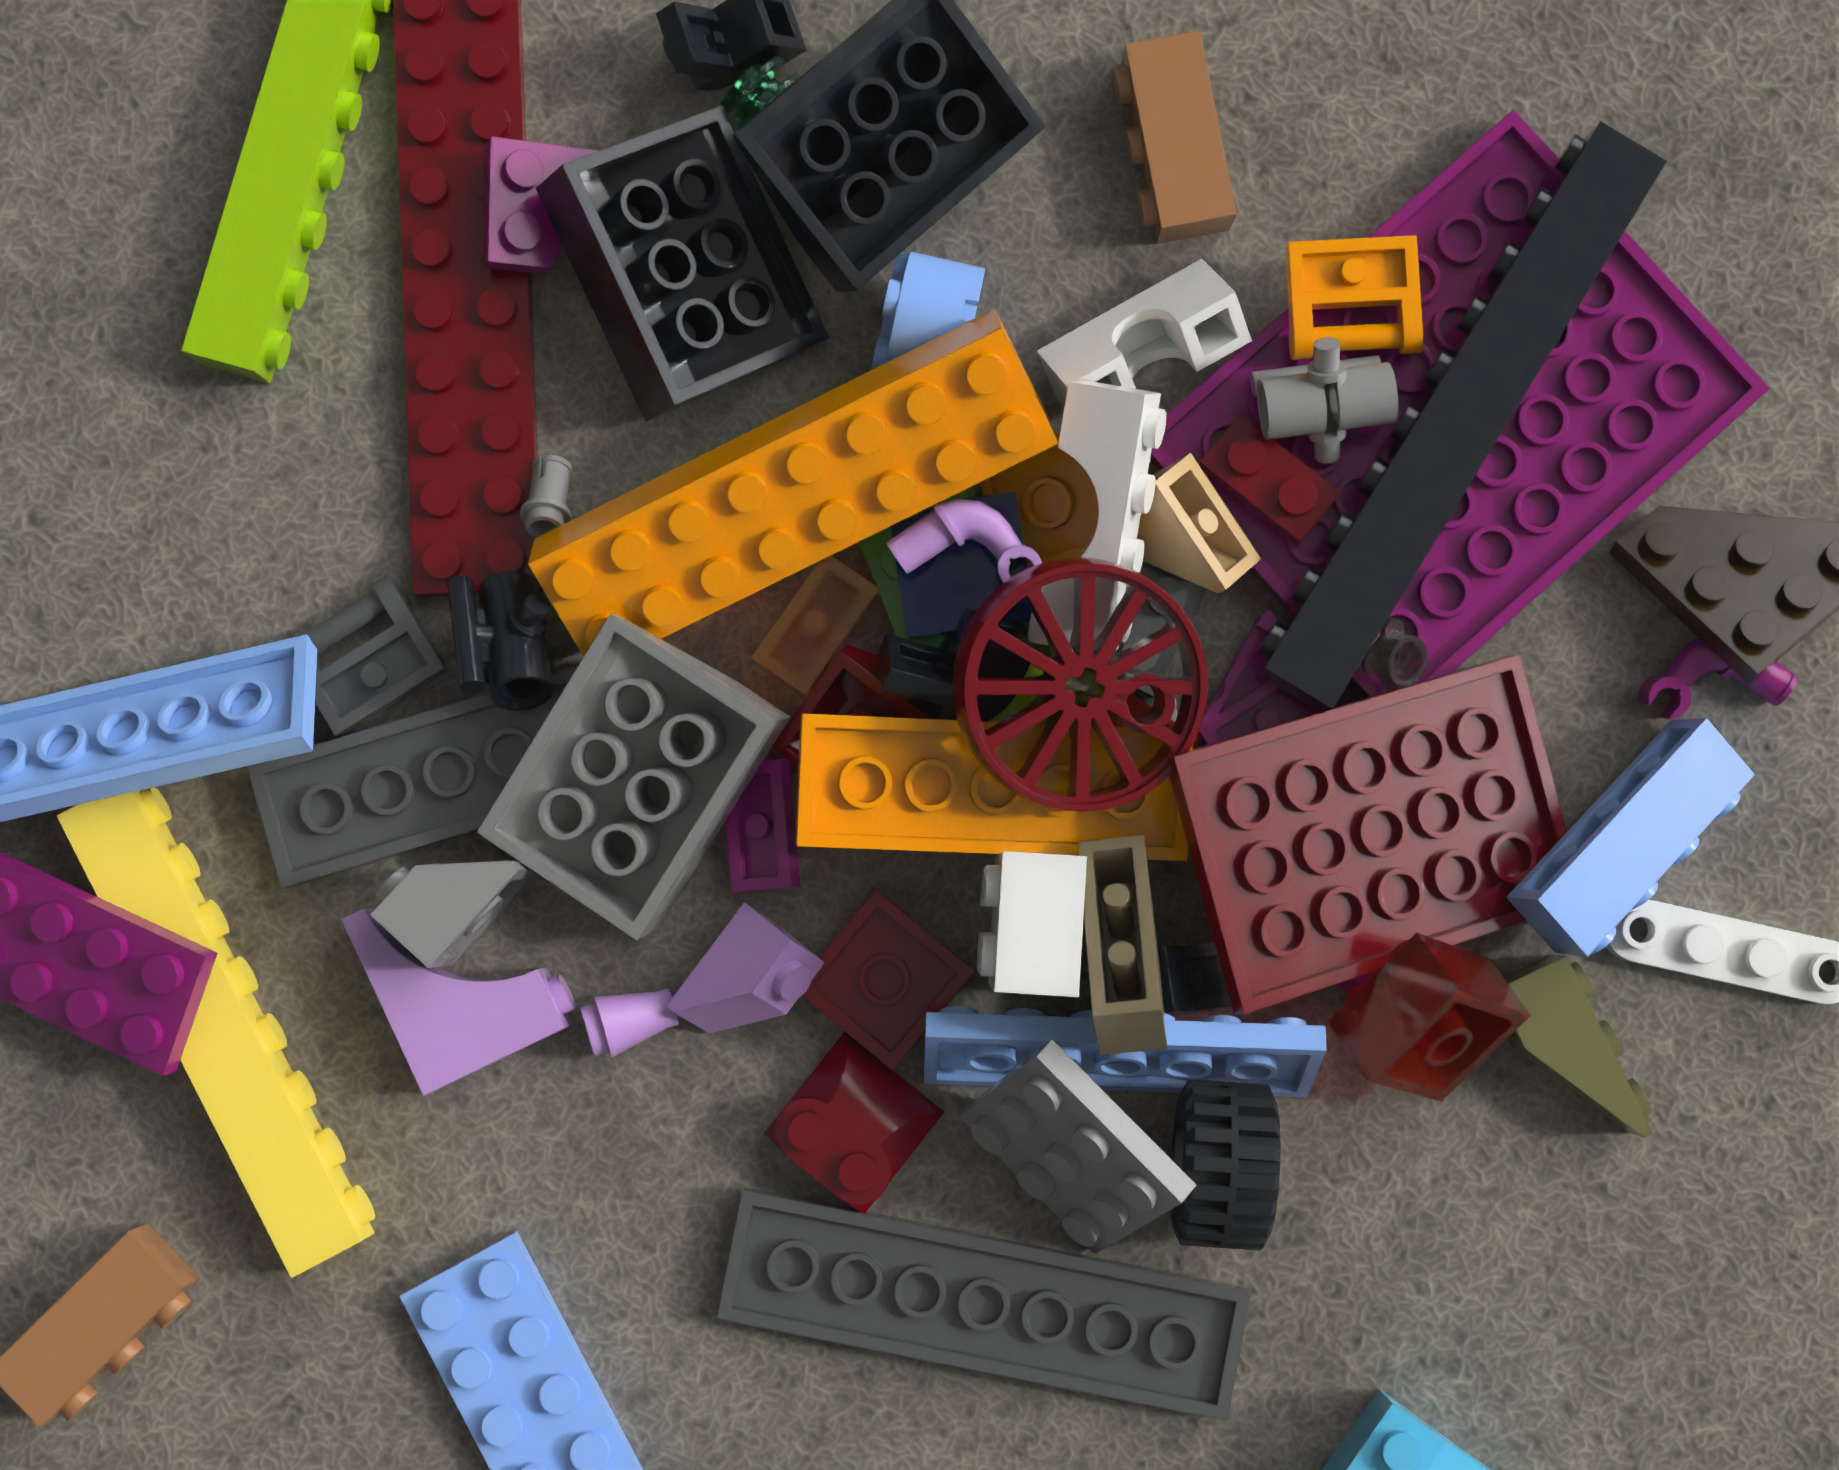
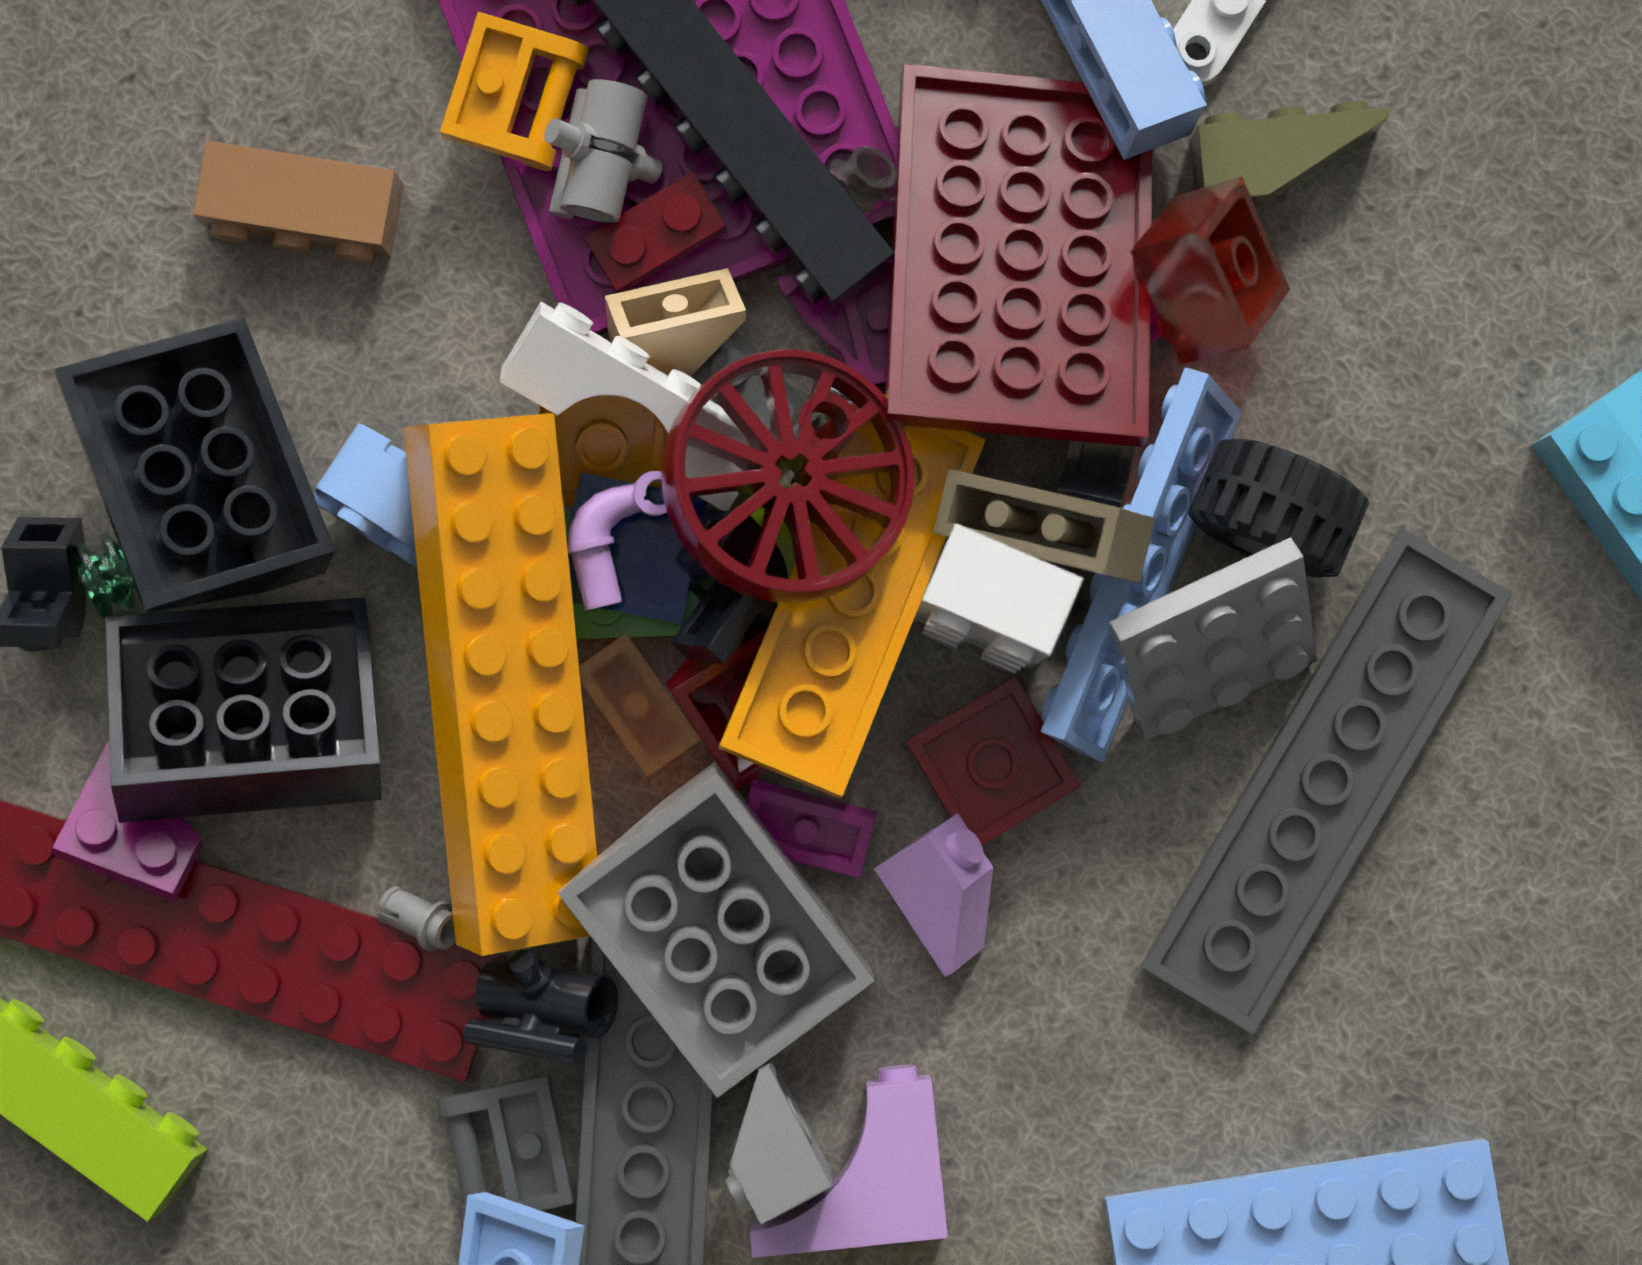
camera: 70 degrees left, 0 degrees up
(626, 1020) = (944, 1021): lavender cone -> none
(853, 1123) = (1116, 841): dark red slope -> none
(1181, 317) = (470, 259): white arch -> none

